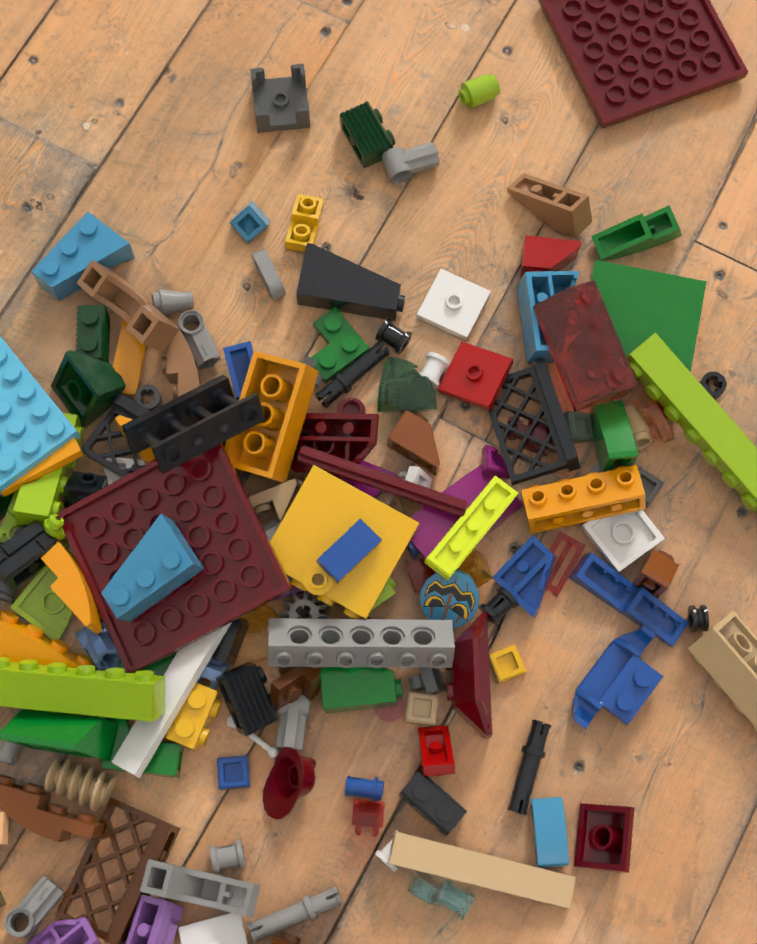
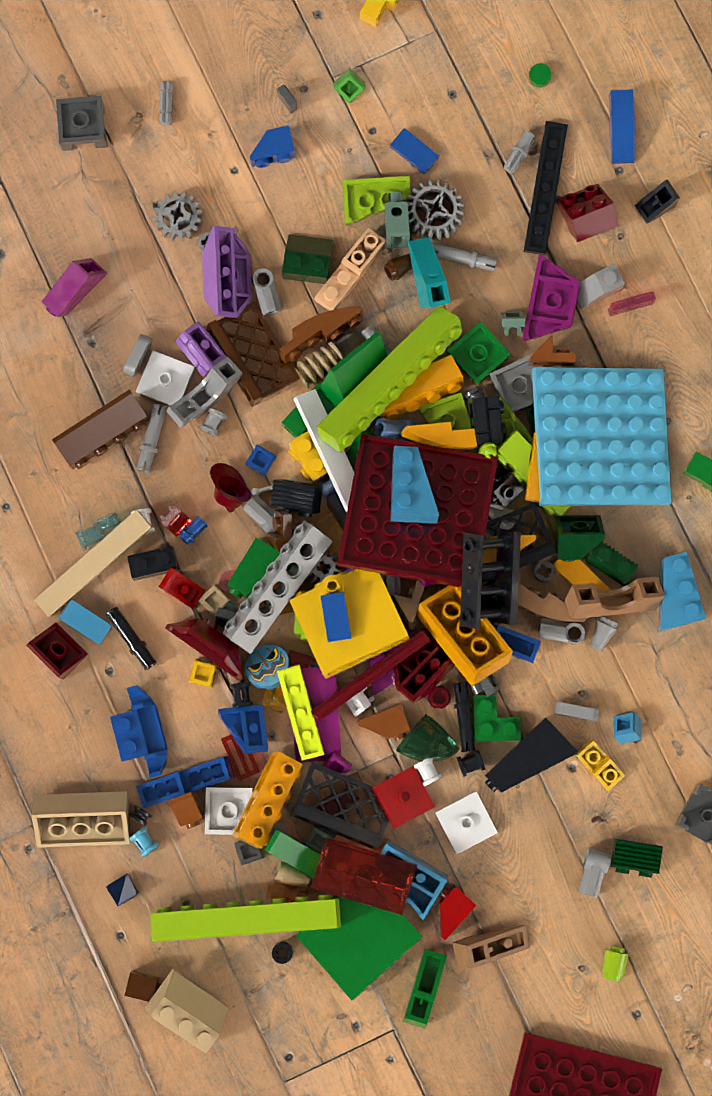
camera: 130 degrees right, 10 degrees up
(720, 594) = (144, 842): none -> medium azure bush

